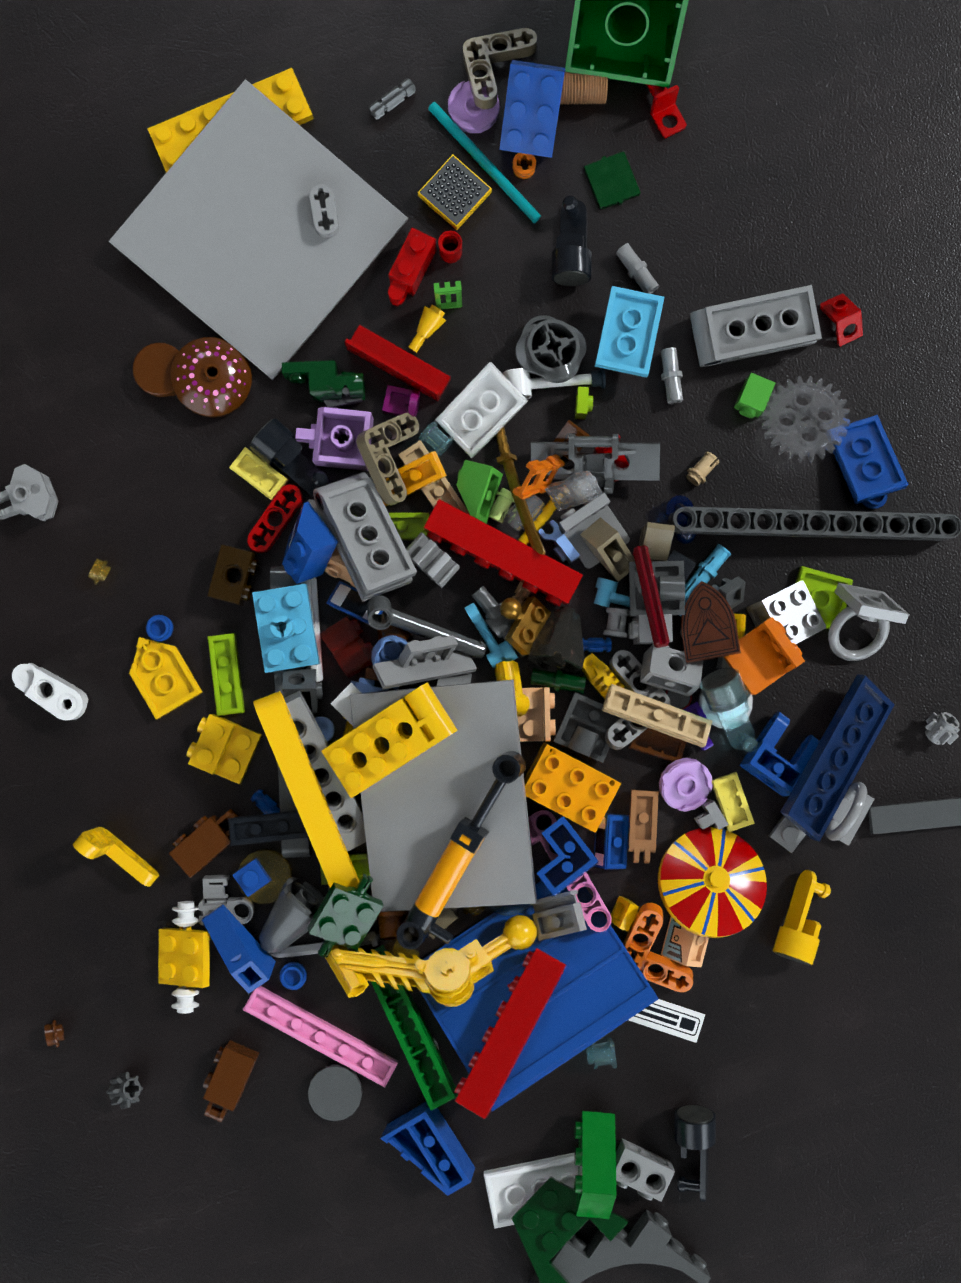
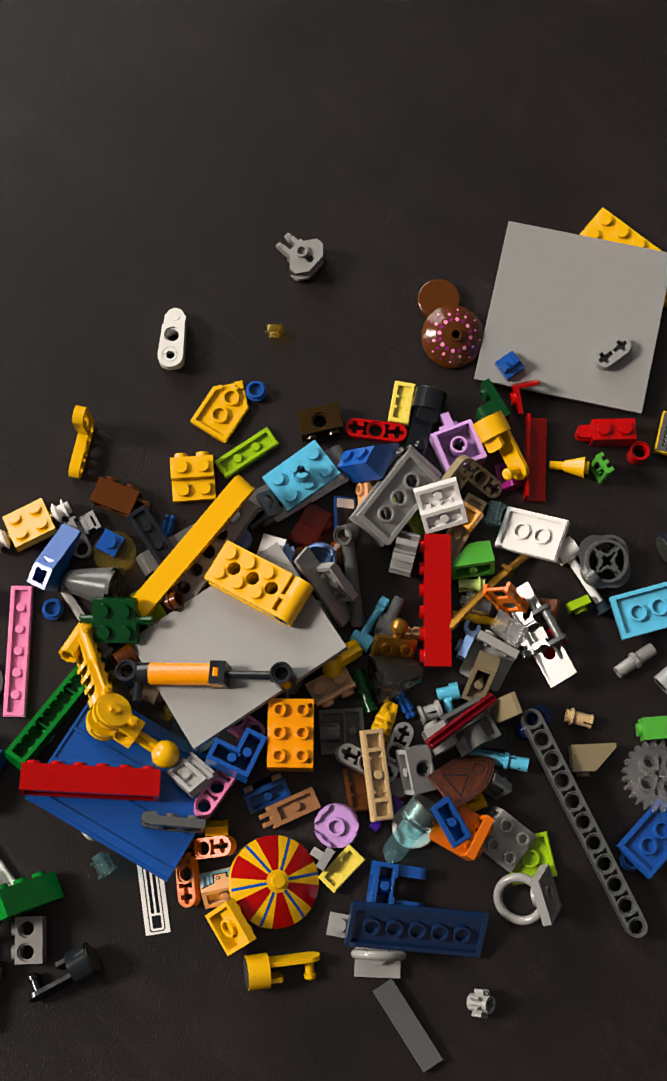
camera: 65 degrees right, 10 degrees down
(278, 332) = (509, 365): none -> blue tile
(318, 345) = (515, 397): none -> red bracket
(354, 389) = (496, 435): none -> yellow piece
(355, 841) = (174, 600): none -> reddish brown plate
(401, 492) = (440, 505): none -> white slope
(599, 962) = (173, 823): none -> dark grey hinge
(738, 952) = (230, 926): none -> yellow plate
(749, 480) = (588, 757): none -> dark tan slope
(751, 664) = (451, 822): none -> blue slope

